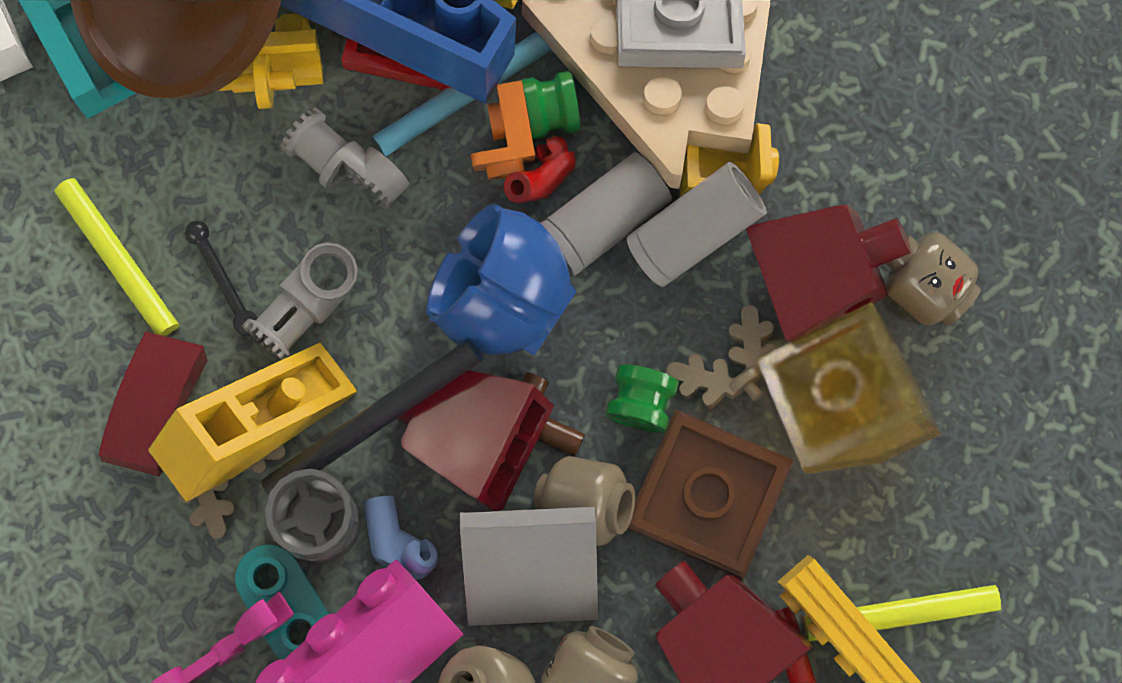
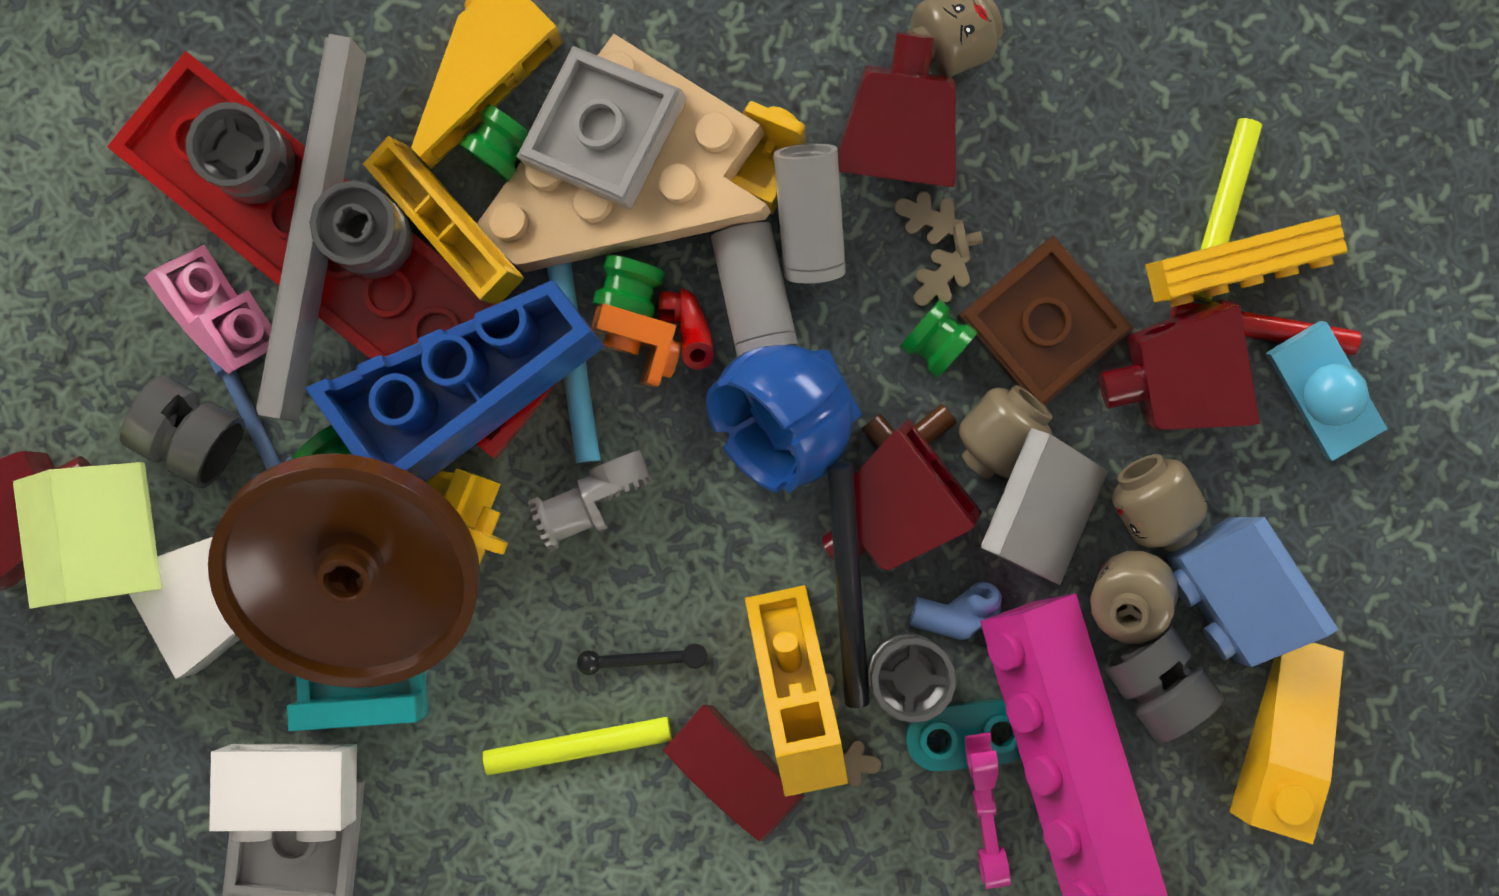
camera: 60 degrees left, 10 degrees up
(303, 298) = (705, 599): light grey connector -> none
(847, 394) = (1023, 159): clear yellow slope -> none

